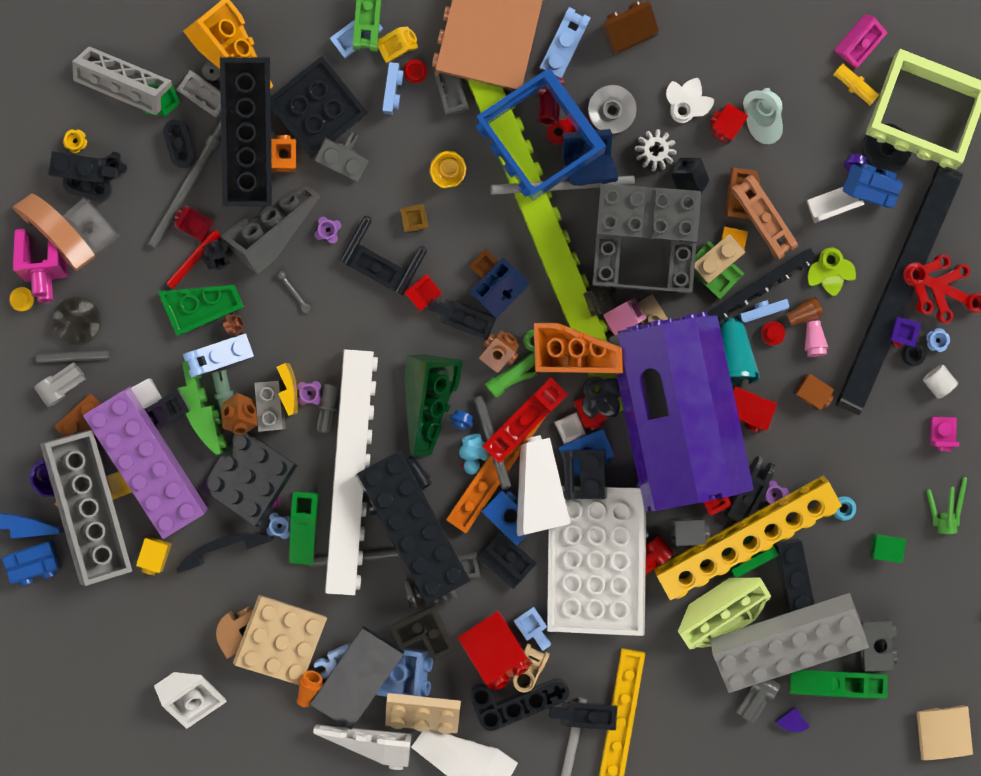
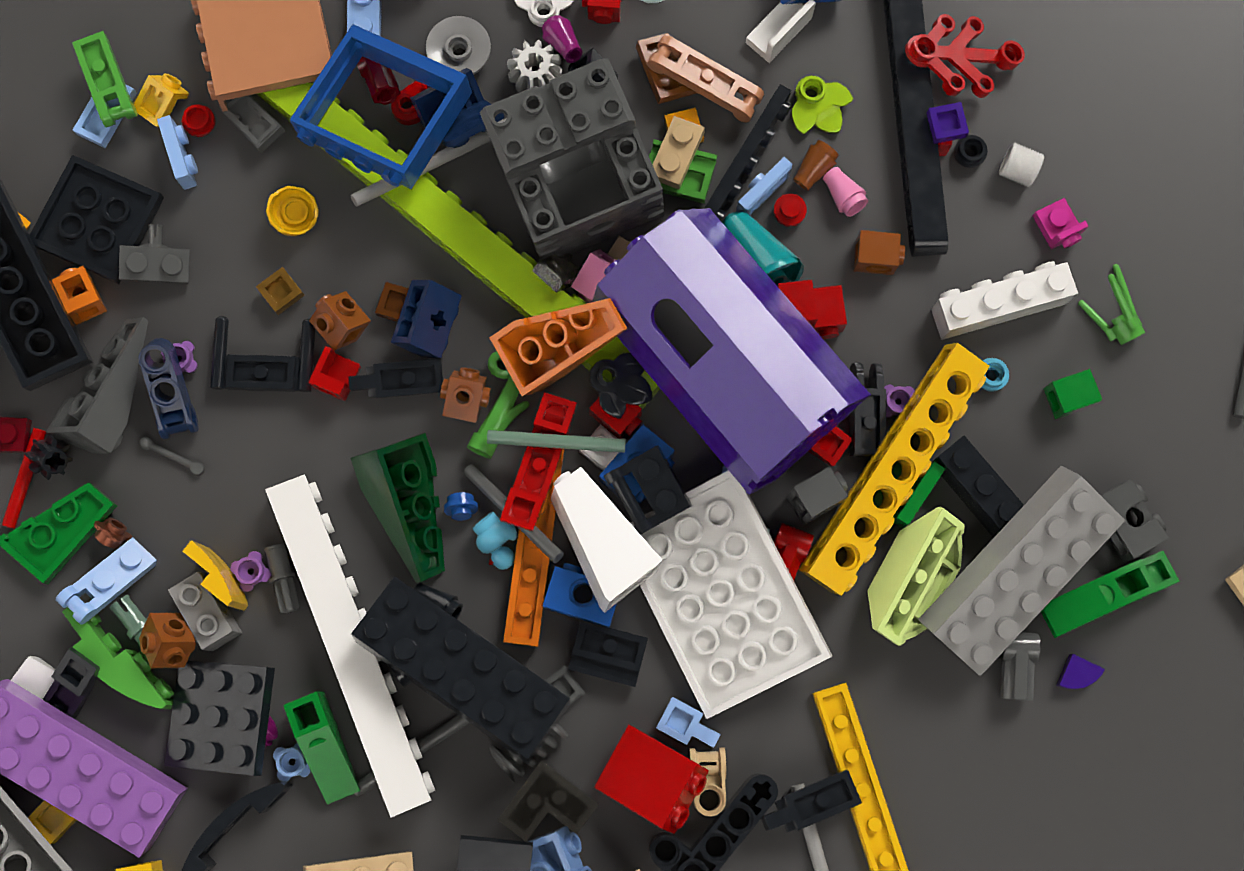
camera: 30 degrees left, 10 degrees down
(310, 264) = (173, 412): none -> dark blue piece
(443, 259) = (339, 320): none -> dark orange brick
(542, 412) = (556, 441): none -> sand green bar
(684, 139) = (562, 38): none -> magenta cone
(877, 466) = (1005, 300): none -> white brick
(944, 340) = (990, 112): light blue plate -> none

